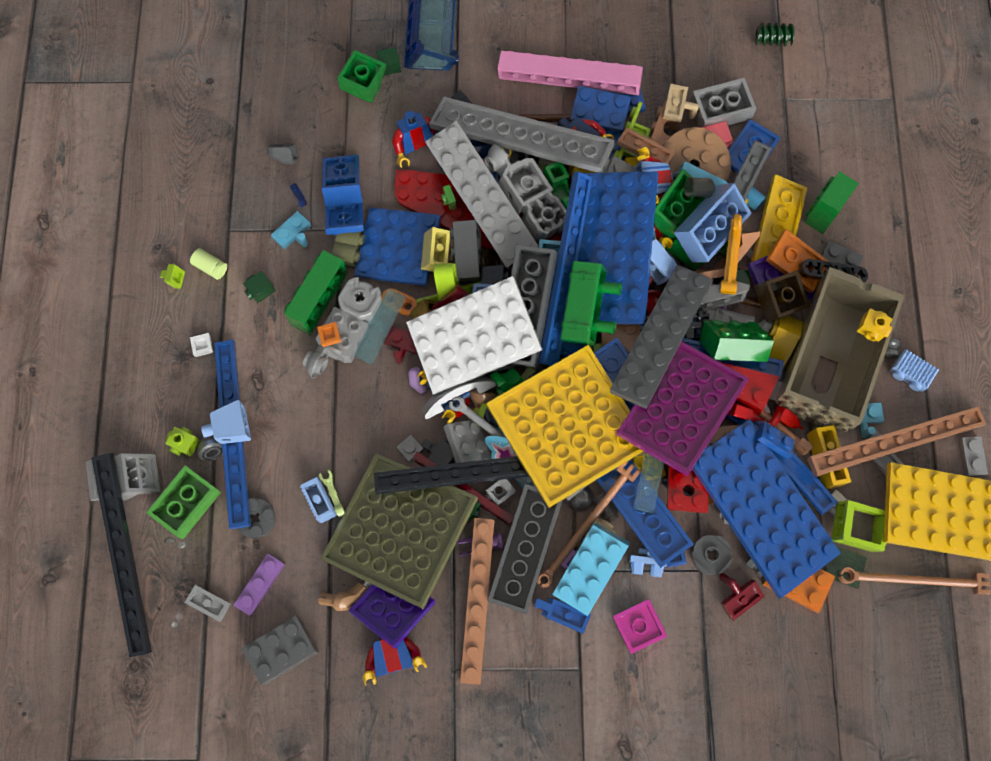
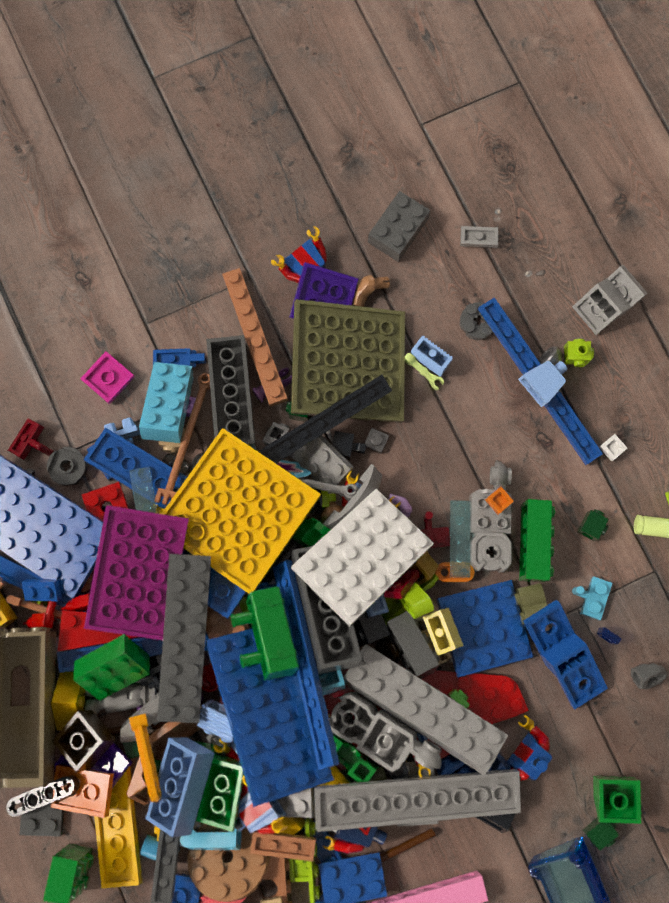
camera: 155 degrees right, 5 degrees up
(121, 555) = (573, 238): black plate -> none
(183, 502) = (545, 303): bright green brick -> none
(259, 585) = (445, 271): medium lavender plate -> none
(485, 503) = (291, 421): dark red tile -> none
(699, 187) = (207, 816): clear smoke brick -> none

